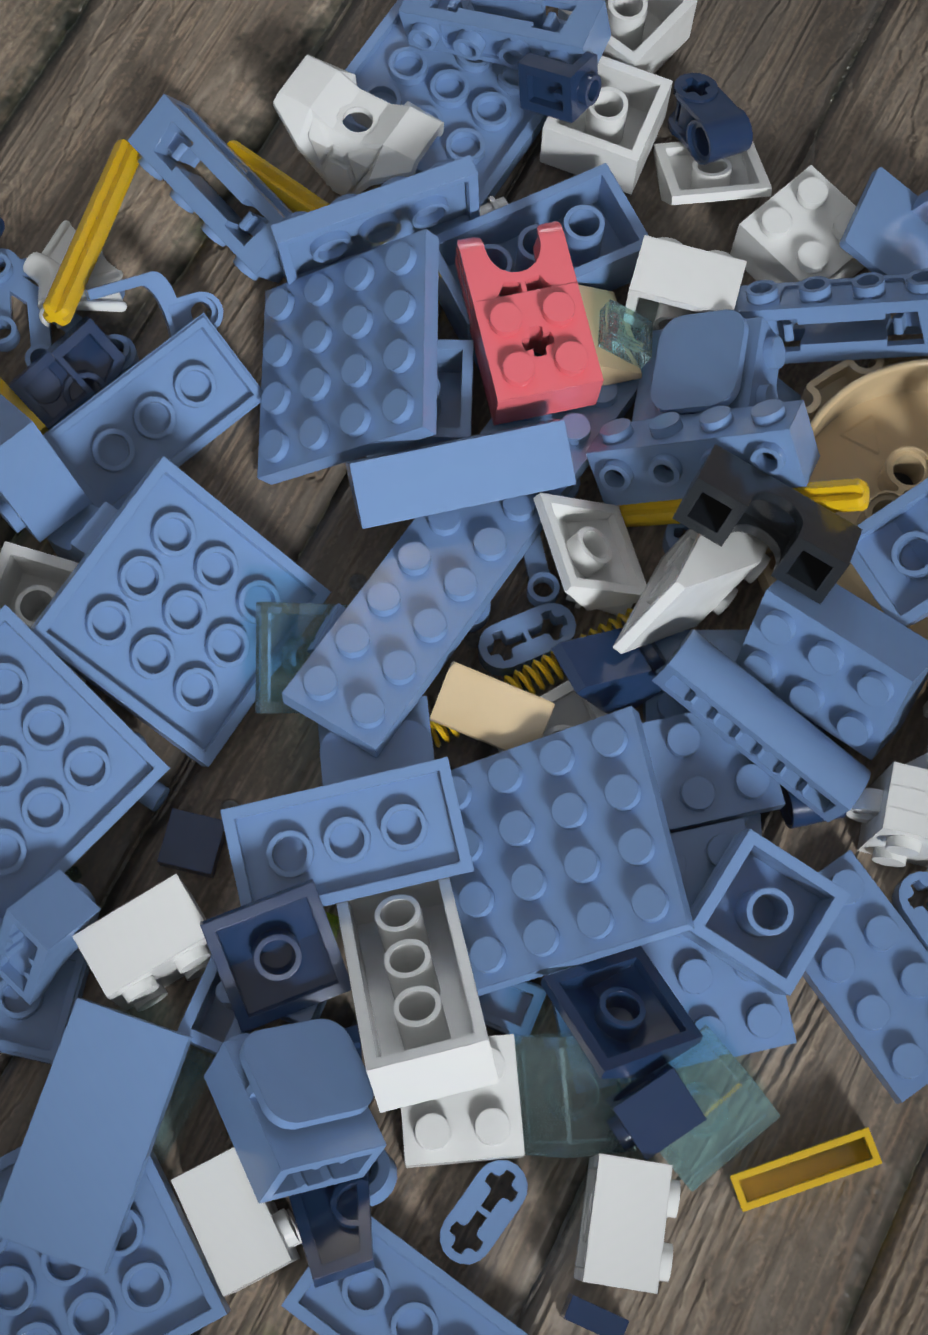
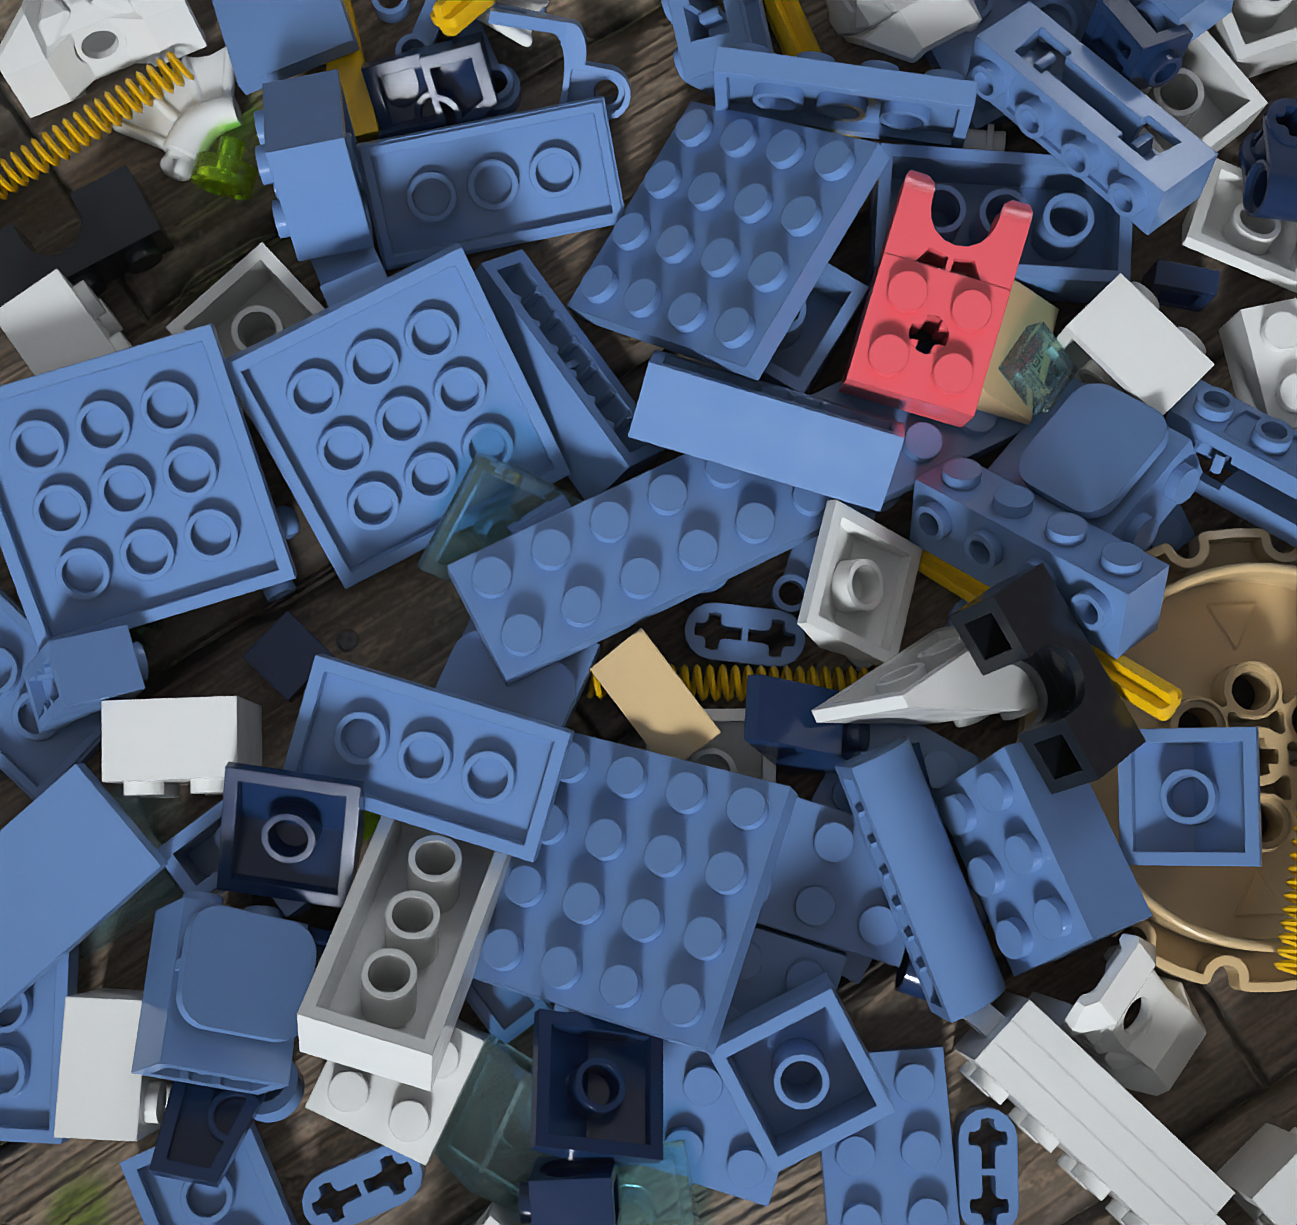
camera: 30 degrees right, 10 degrees up
(312, 535) = (567, 377): none -> medium blue brick
(561, 147) = (1089, 118): none -> medium blue brick
(691, 229) = (1181, 285): none -> dark blue tile

